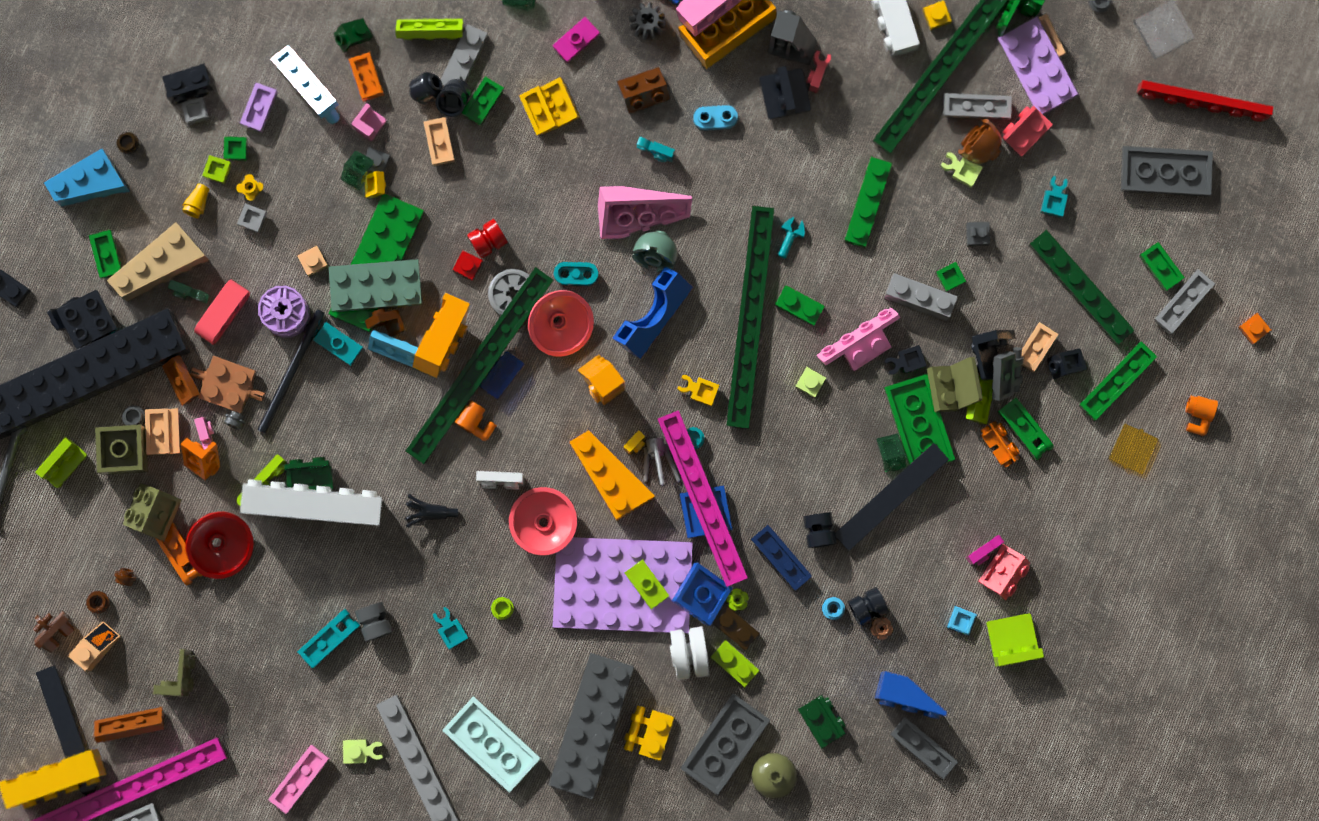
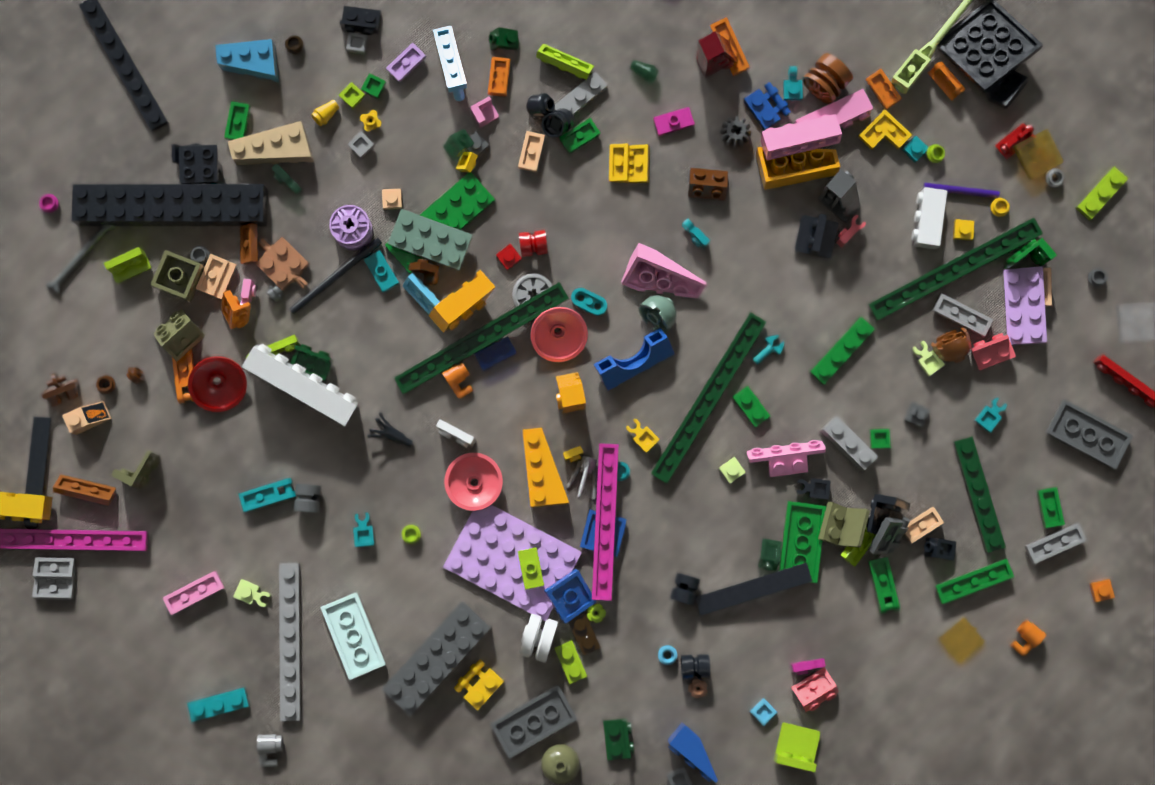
camera: 25 degrees right, 0 degrees up
(222, 312) = (304, 206): coral beam -> none
(715, 116) = (753, 231): medium azure plate -> none
(781, 557) = (645, 596): dark blue plate -> none
(1006, 450) = (861, 594): orange hinge -> none

